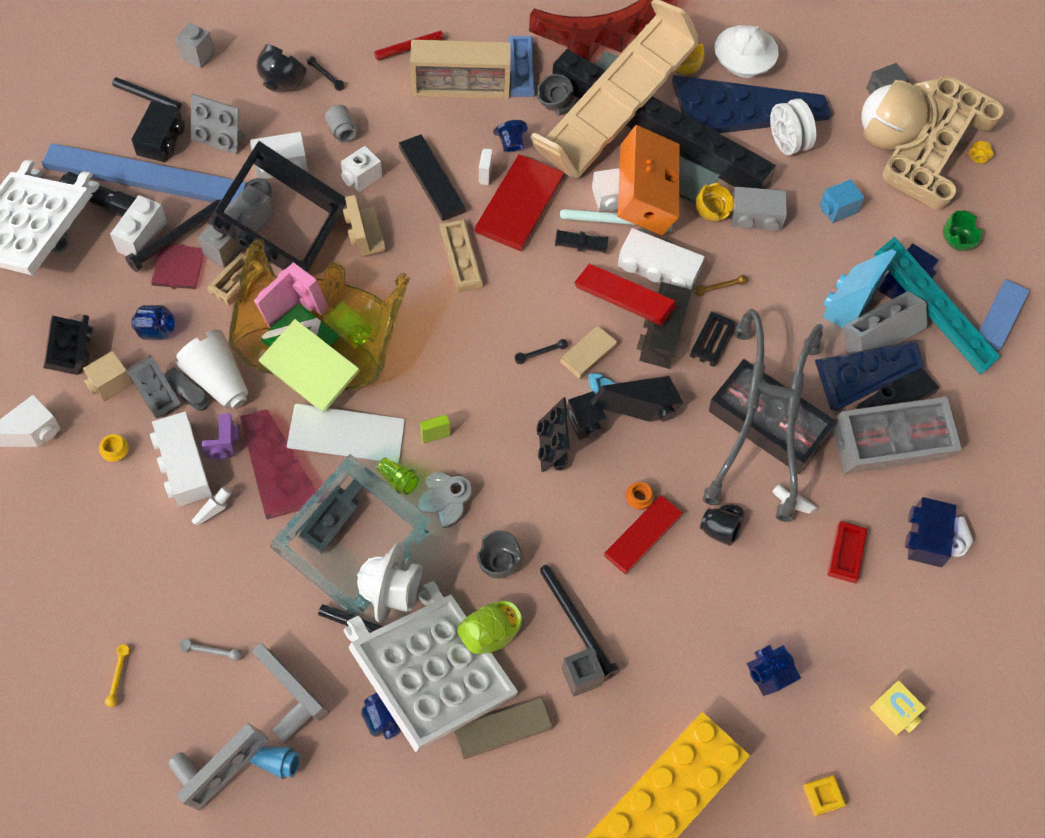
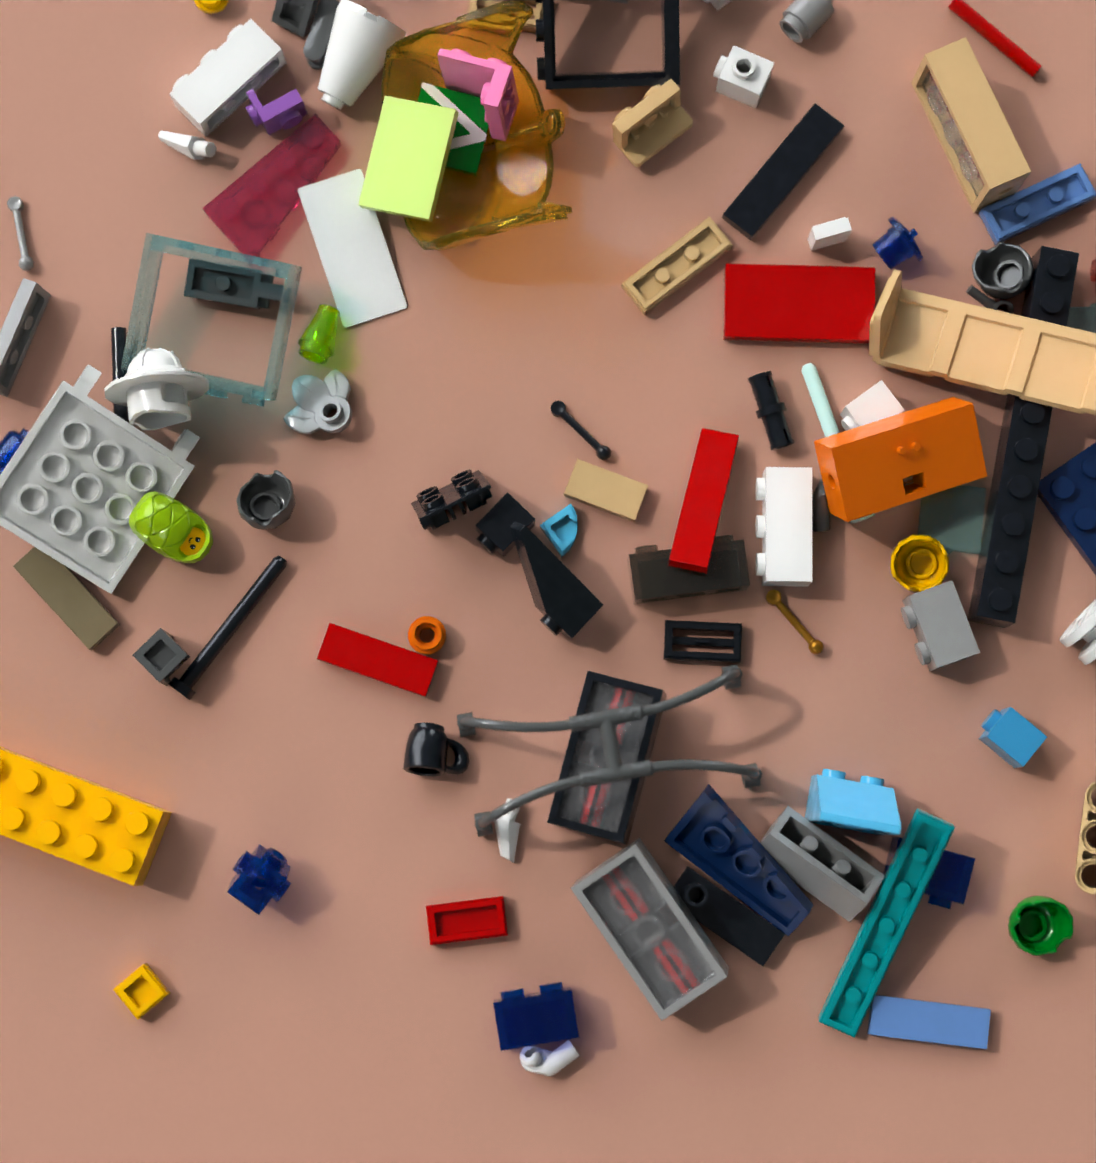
camera: 70 degrees right, 20 degrees up
(348, 325) = (489, 177): clear neon green brick -> none
(434, 428) = (401, 349): lime tile -> none
(898, 709) = (278, 1045): light yellow brick -> none

